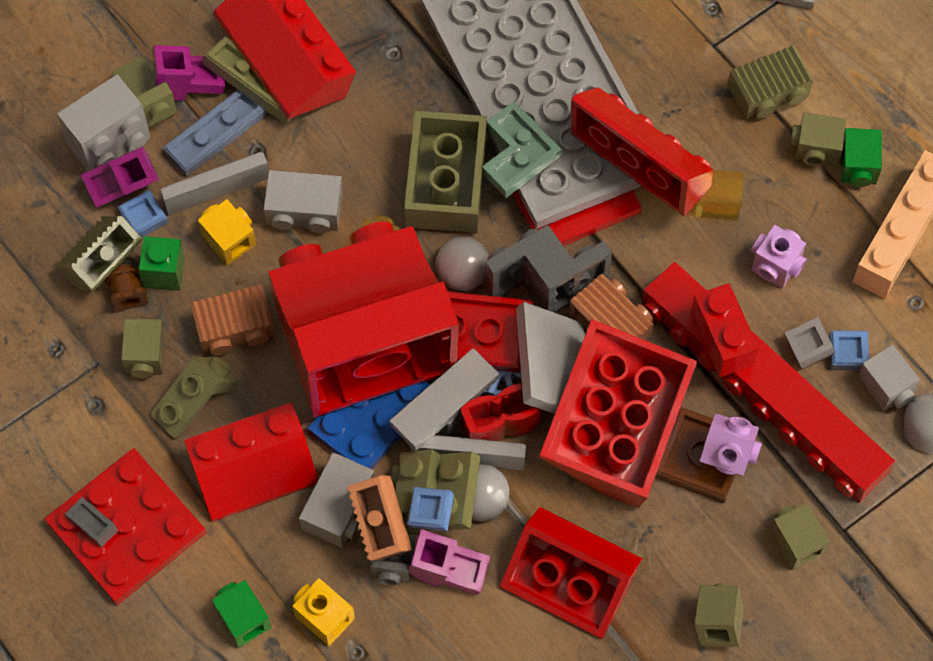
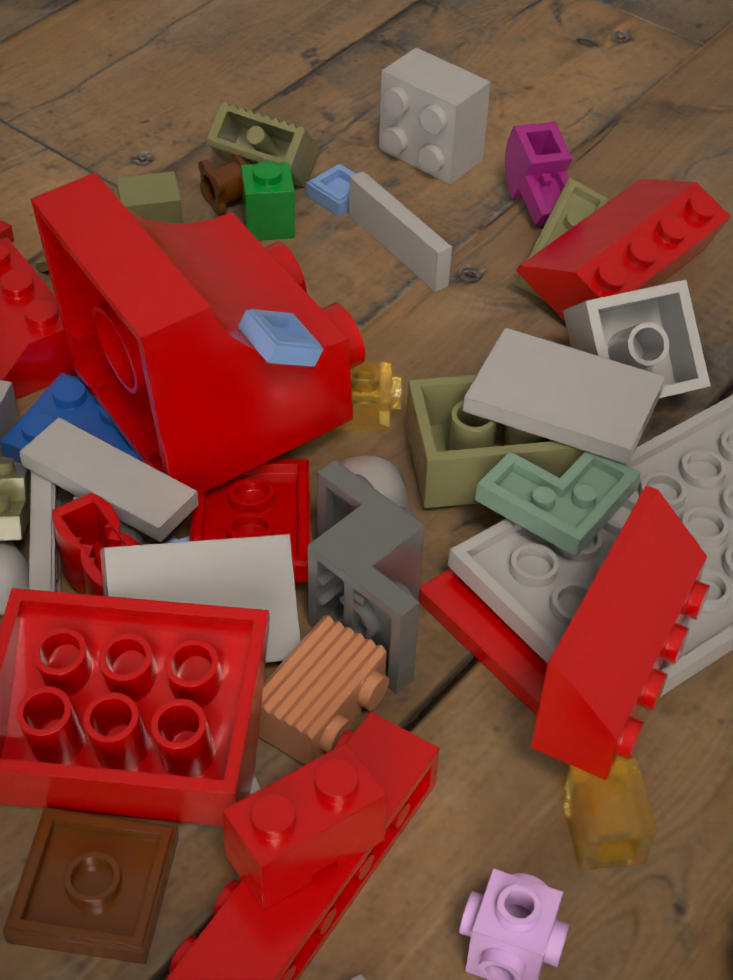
camera: 75 degrees right, 20 degrees down
(120, 176) = (377, 146): magenta brick -> none
(156, 100) = (483, 156): olive bracket -> none
(213, 132) = (476, 227): sand blue tile -> none
(227, 231) = (333, 250): yellow brick -> none
(303, 201) = (402, 311): light grey brick -> none
(396, 68) = (644, 330): none -> light grey brick
(424, 259) = (280, 337): none -> medium blue tile
(446, 122) = (565, 395): none -> light grey tile
(731, 445) = (87, 892): lavender brick -> none

